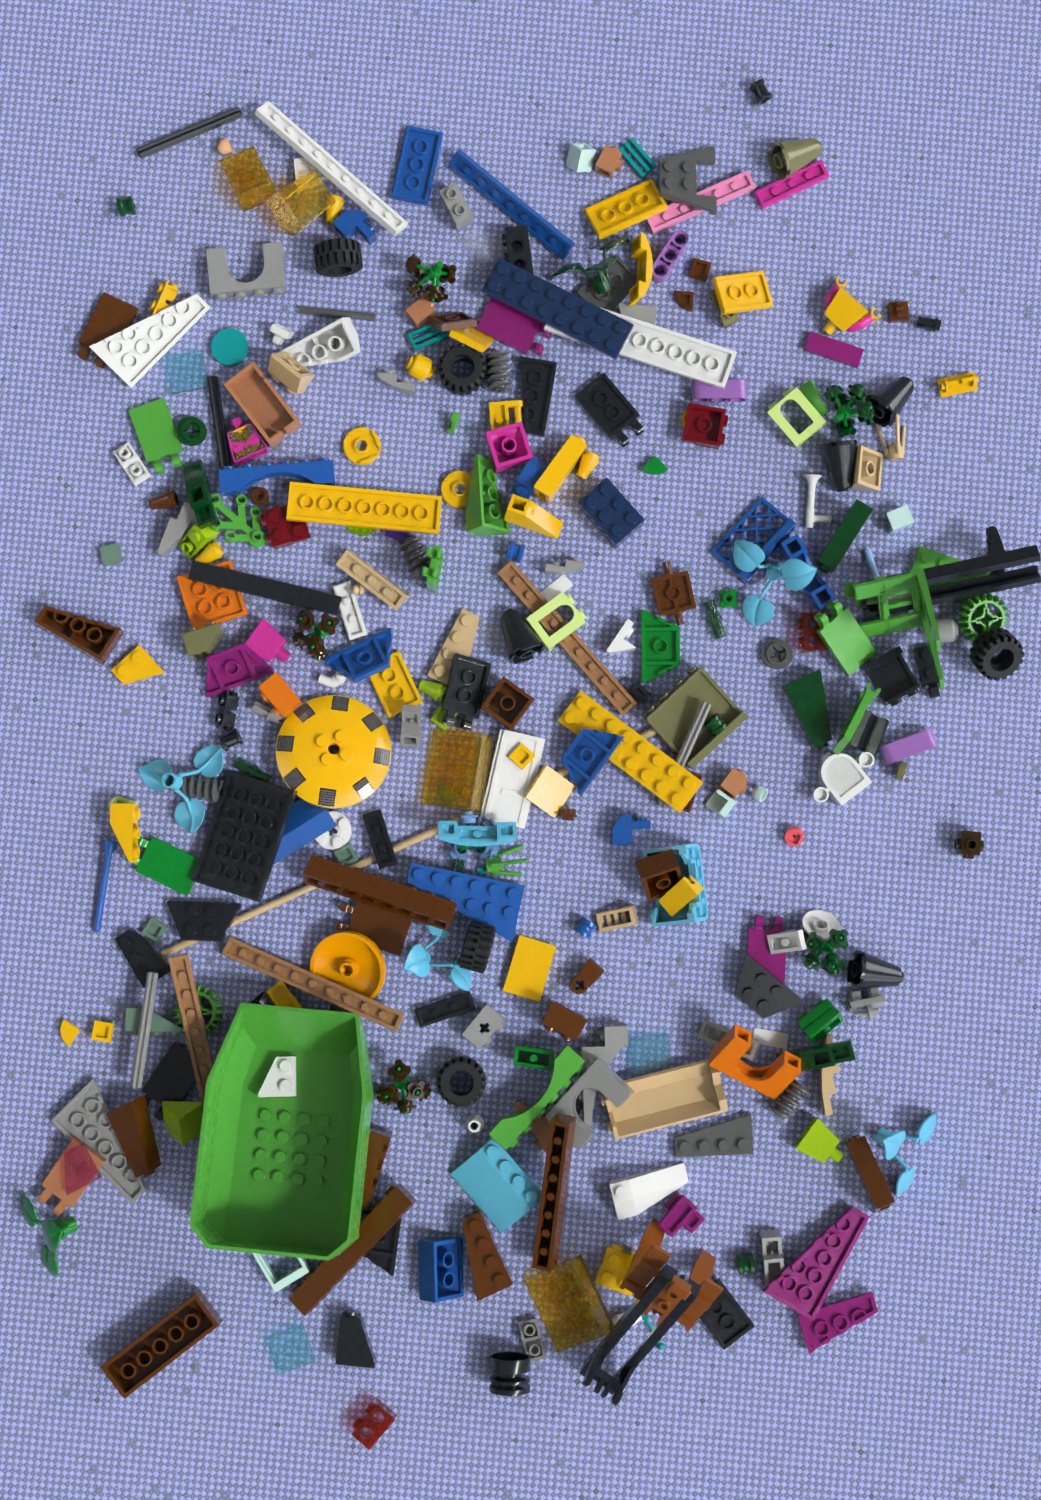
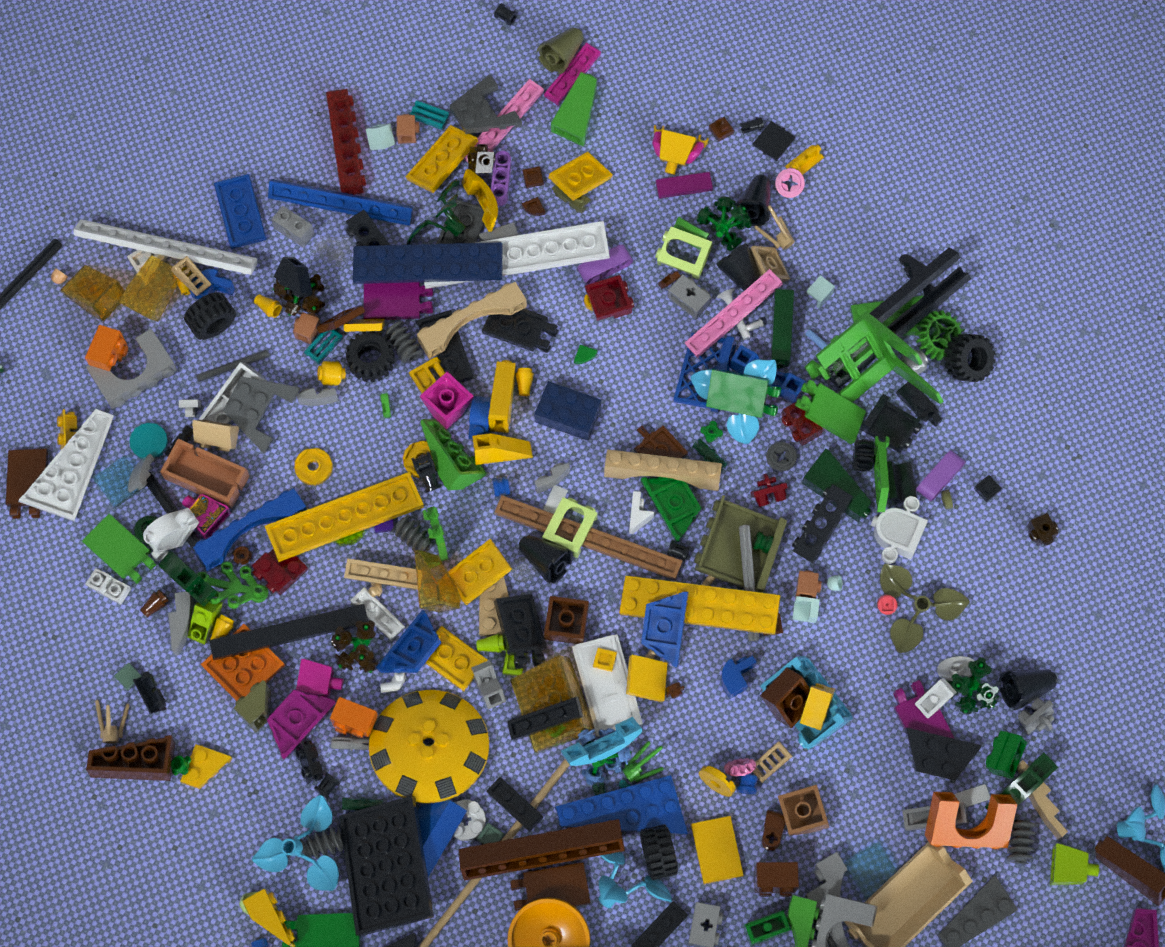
camera: 30 degrees left, 15 degrees down
(70, 596) = (110, 733): none -> tan plant
(117, 657) = (180, 765): none -> green plate
(121, 580) = (151, 696): none -> black hinge
(205, 444) = (169, 532): none -> white piece
(206, 375) = (140, 474): none -> light grey slope
(230, 241) = (106, 348): none -> orange brick
(259, 360) = (186, 432): none -> black axle
(328, 197) = (181, 275): none -> tan slope
(334, 359) = (250, 403): none -> dark grey wing
(397, 274) = (269, 306): none -> yellow cone
(411, 611) = (435, 585): none -> clear yellow slope
(428, 261) = (294, 276): none -> black slope
(442, 781) = (545, 718): none -> black tile
(454, 619) = (479, 571): none -> yellow tile
(456, 502) = (426, 470): none -> black connector
(557, 101) = (342, 100): none -> clear red brick
(560, 912) = (717, 781): none -> yellow tile
(586, 910) = (740, 767): none -> bright pink gear
(608, 380) = (504, 301): none -> tan arch
(619, 976) = (803, 811): none -> medium nougat slope
(641, 594) = (694, 472): none -> tan arch
(659, 230) = (481, 159): none -> dark brown brick
(756, 682) = (761, 494): none -> dark red hips
(769, 435) = (670, 278): none -> reddish brown tile
(770, 582) = (741, 393): none -> tile
(773, 225) = (575, 112): none -> bright green slope
(778, 472) = (693, 305): none -> light grey brick
(796, 871) = (947, 601): none -> olive plant
(805, 725) = (812, 552): none -> black brick
(807, 500) = (733, 313): none -> bright pink plate
(849, 692) = (863, 455): none -> black gear
(922, 400) = (783, 188): none -> bright pink gear
(941, 348) = (774, 141): none -> black piece
(943, 779) = (987, 488): none -> black plate

